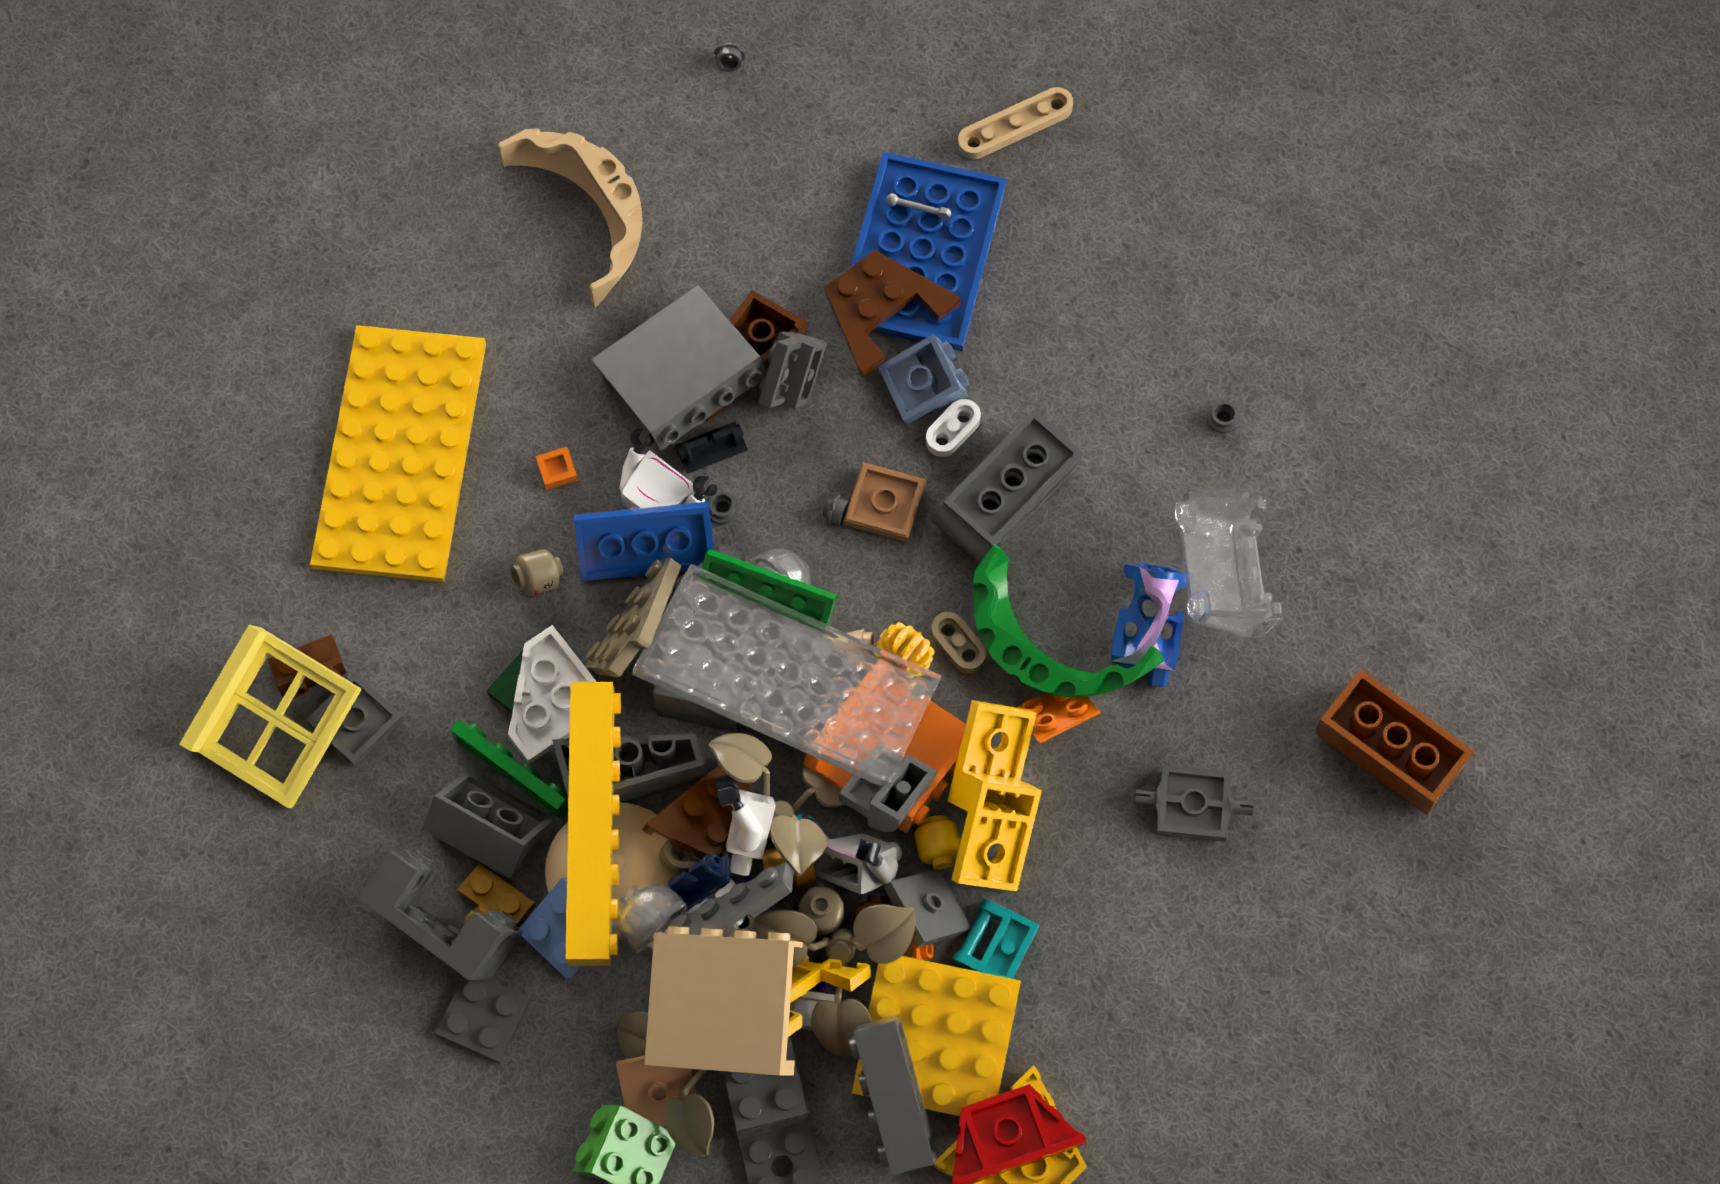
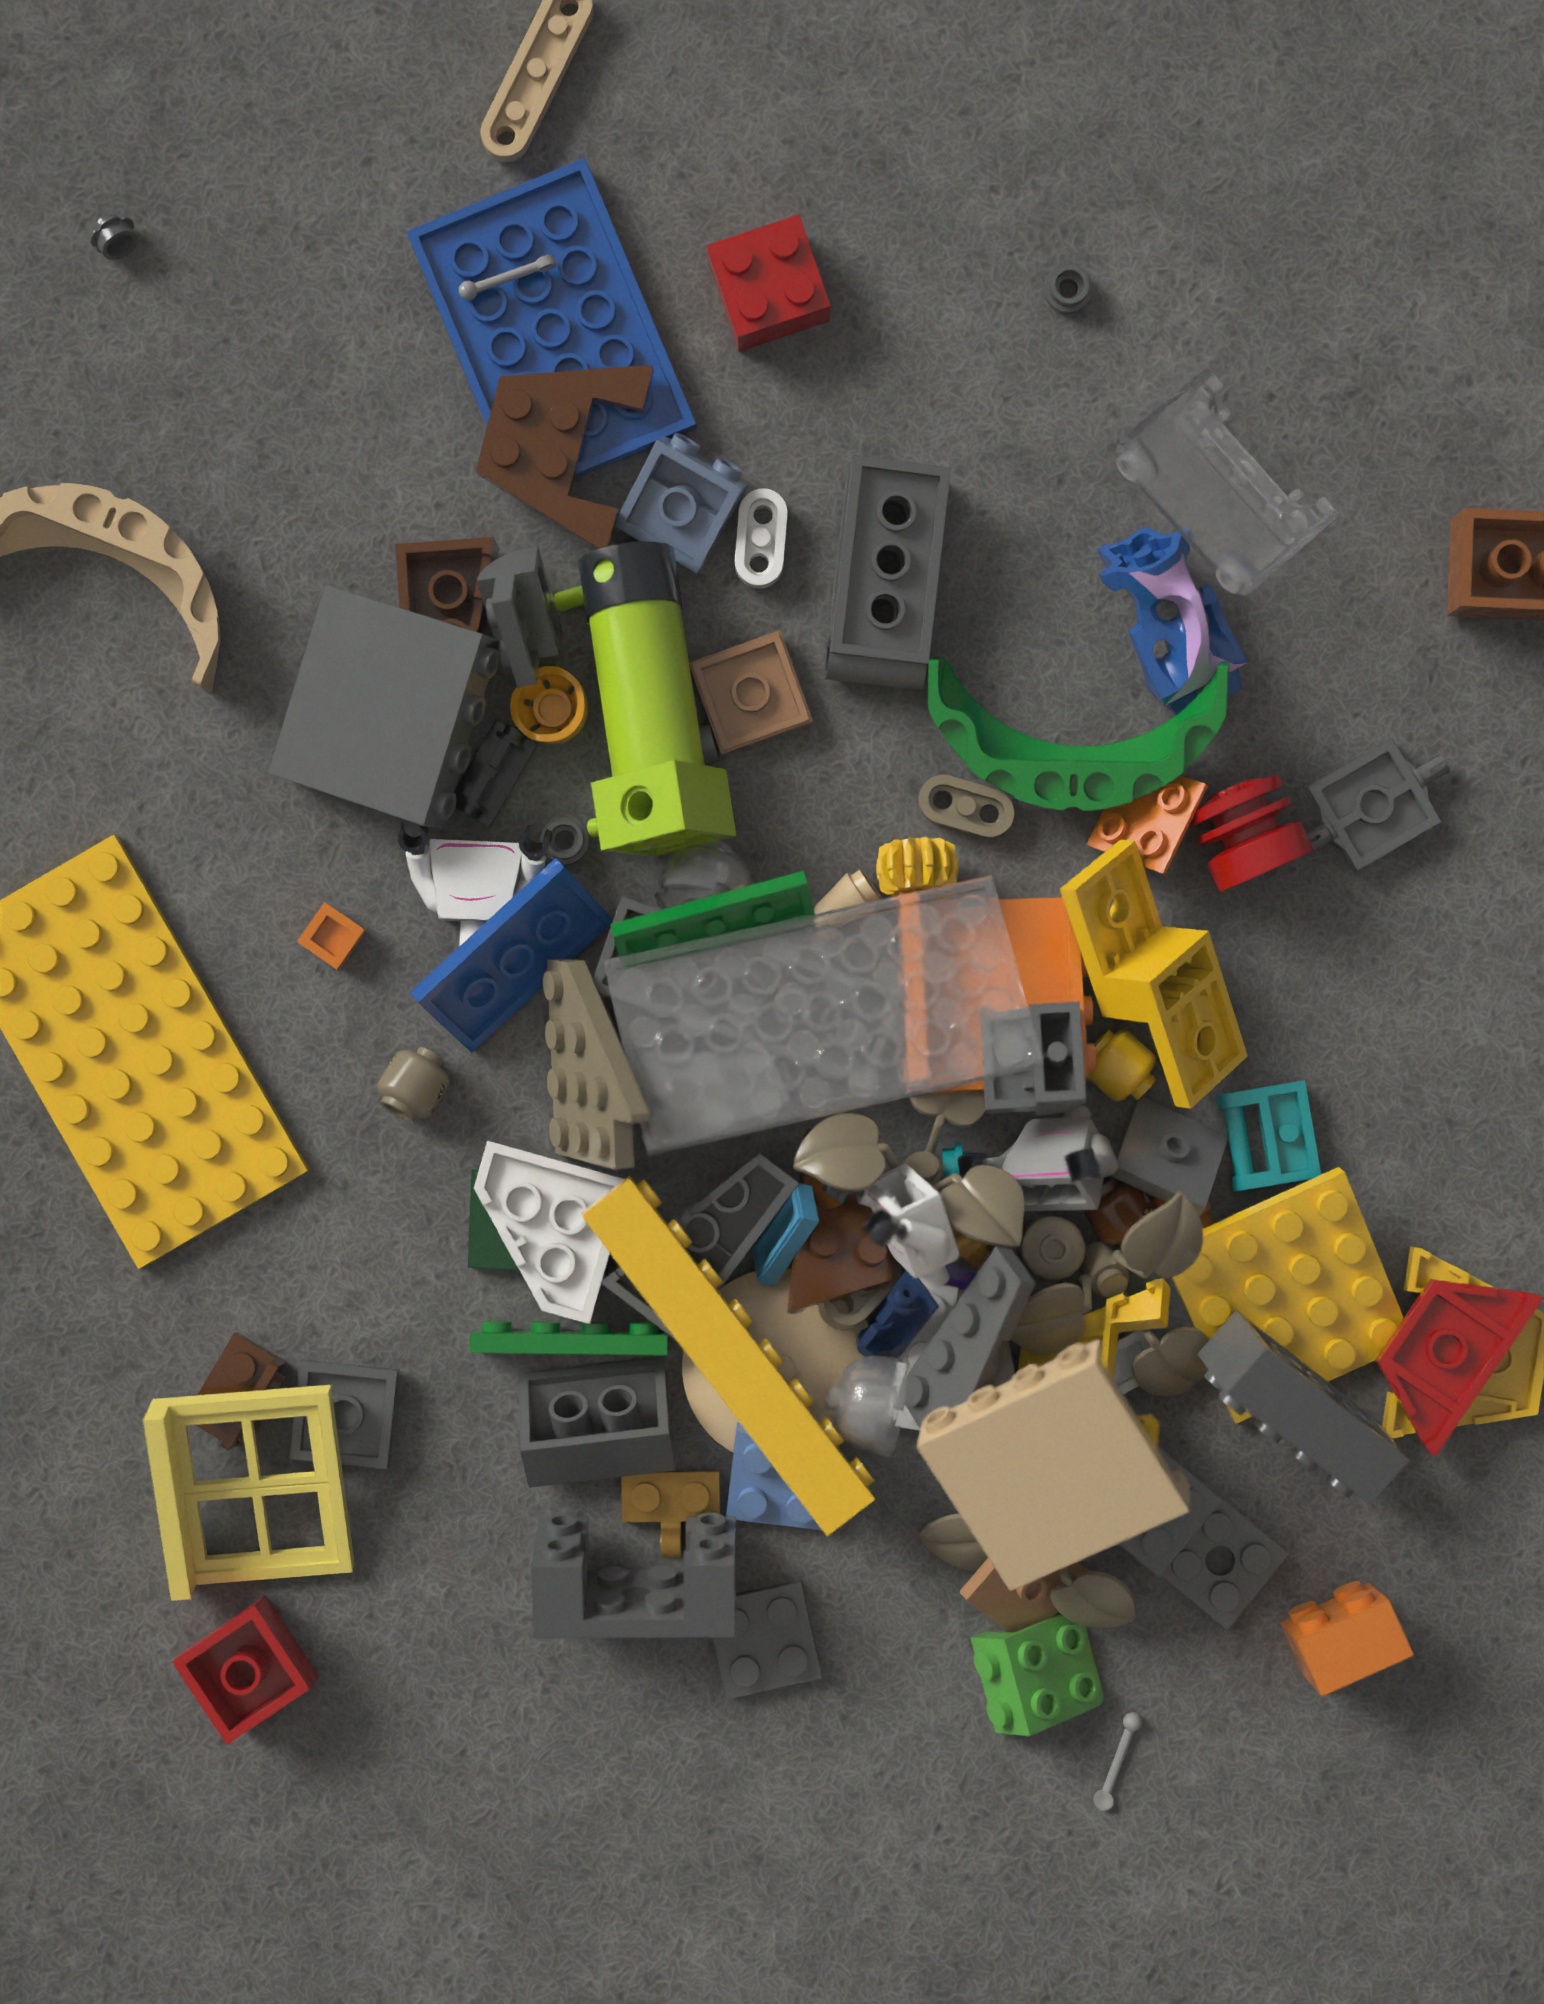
camera: 30 degrees left, 20 degrees up
(186, 812) = (246, 1670): none -> red brick
(674, 791) = (785, 1235): none -> dark azure tile
(770, 439) = (551, 707): none -> light orange helmet
(796, 504) = (659, 783): none -> lime piece
(1057, 303) = (768, 283): none -> red brick
(1107, 760) = (1249, 832): none -> red wheel

